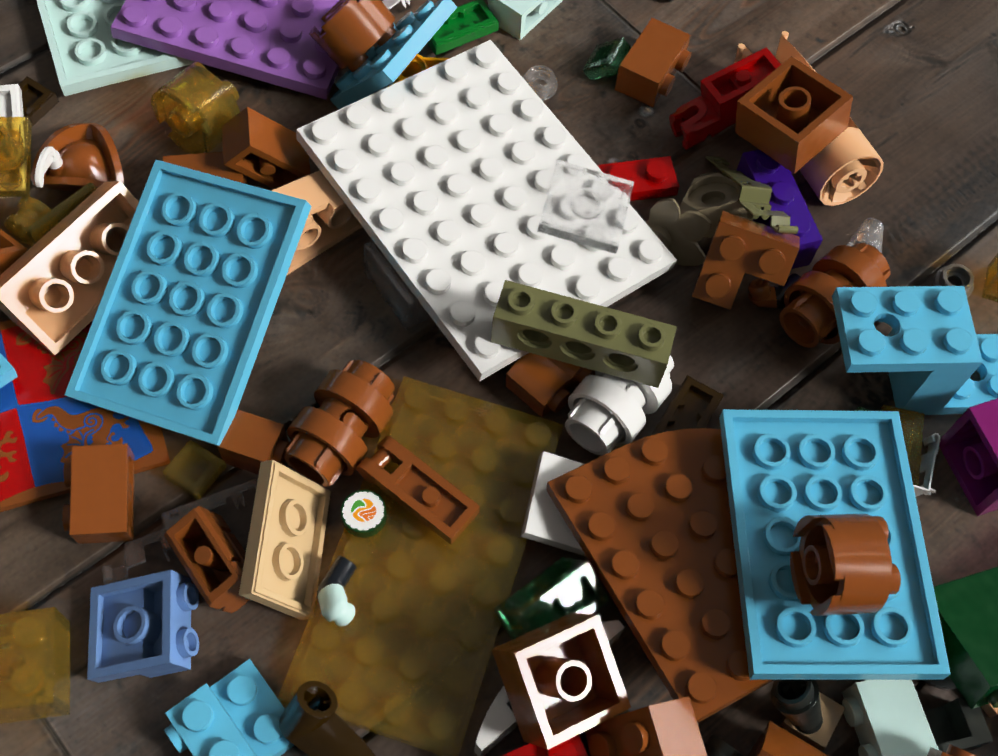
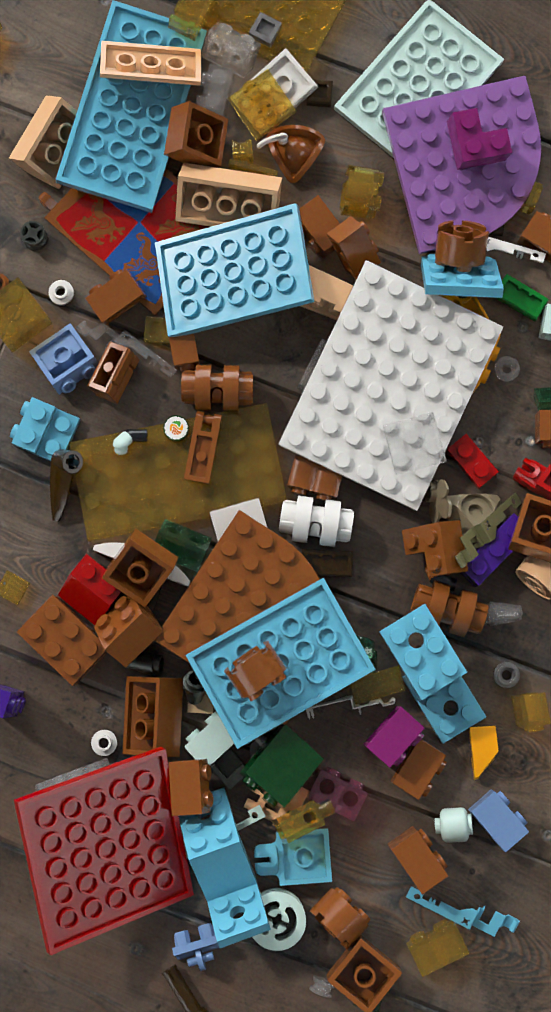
camera: 65 degrees right, 20 degrees up
(41, 585) = (64, 299): none -> white plate
(285, 541) = (140, 400): tan tile -> none
(582, 333) = (322, 483): olive brick -> none

